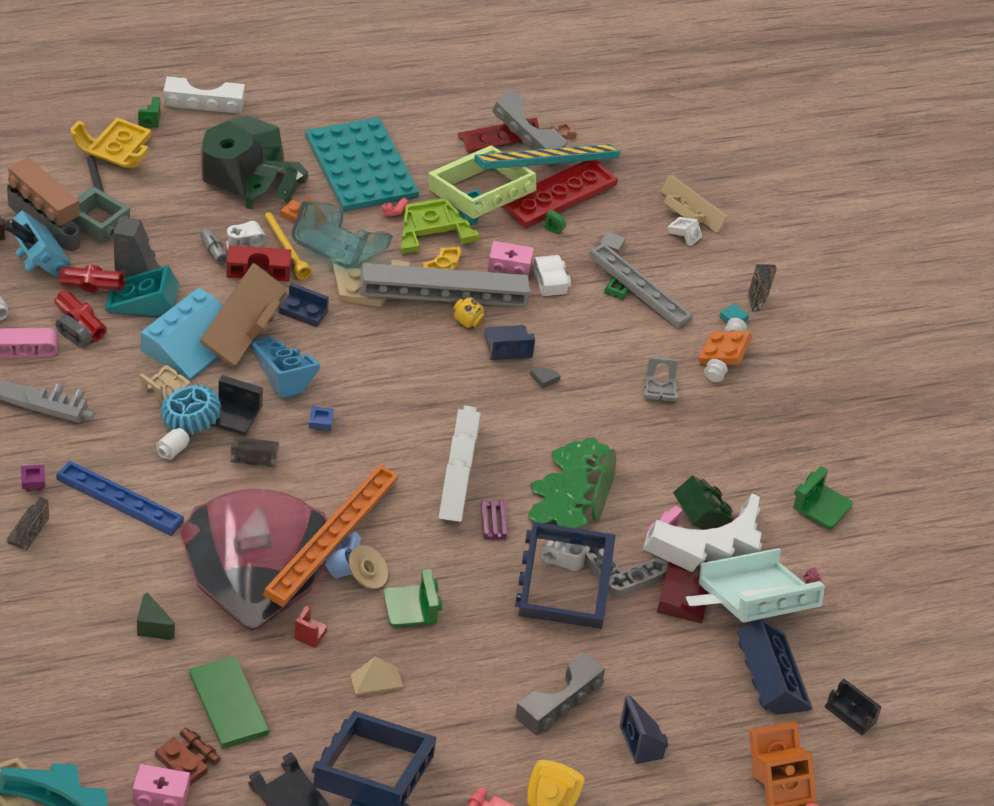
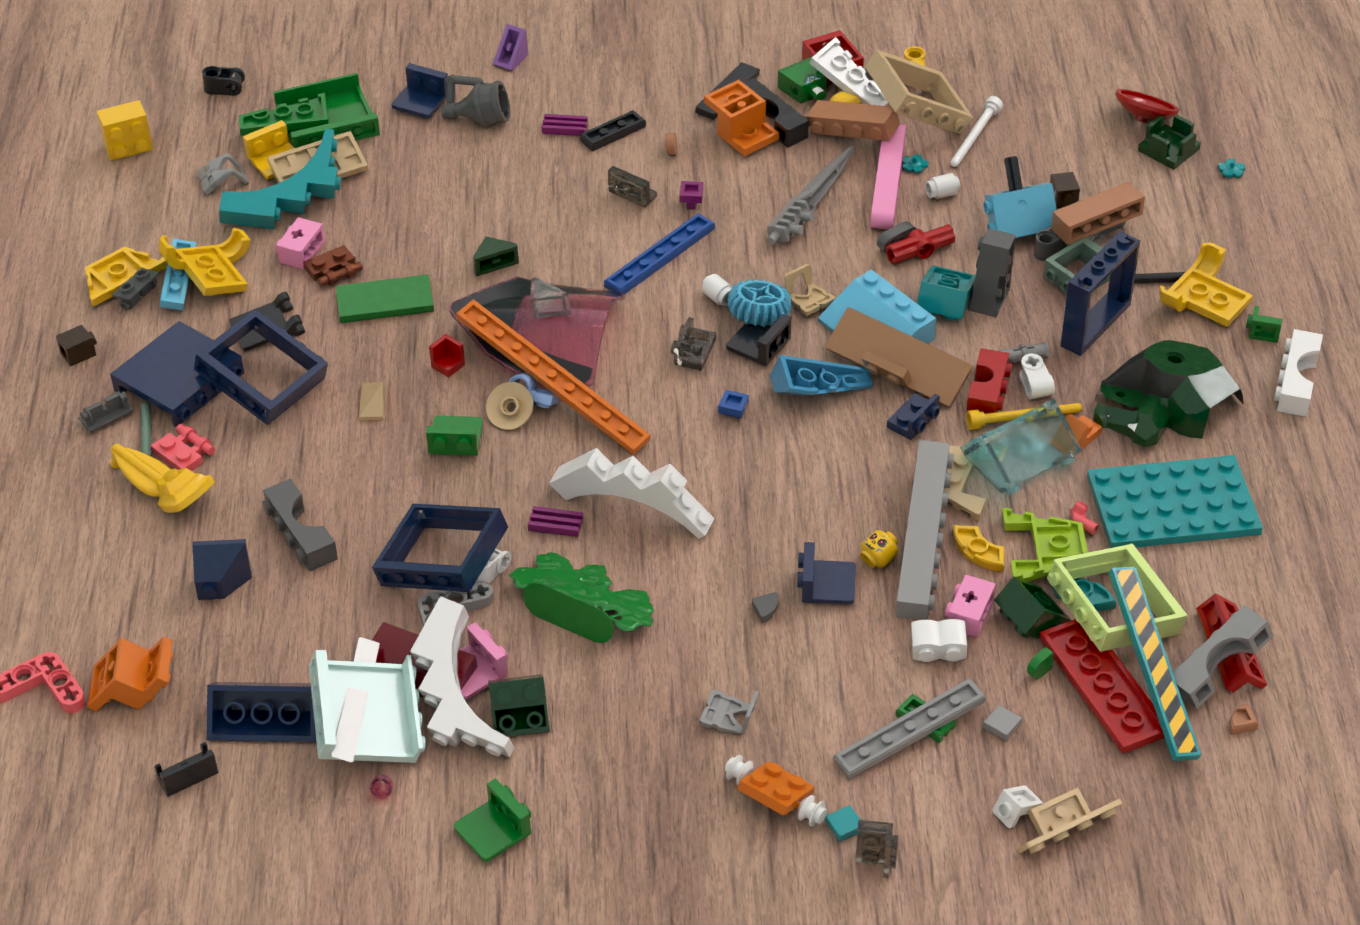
camera: 110 degrees right, 0 degrees up
(92, 278) = (966, 253): red piece -> none
(181, 216) = (1083, 326): none -> dark blue window
(505, 227) = (1029, 608): none -> dark green slope

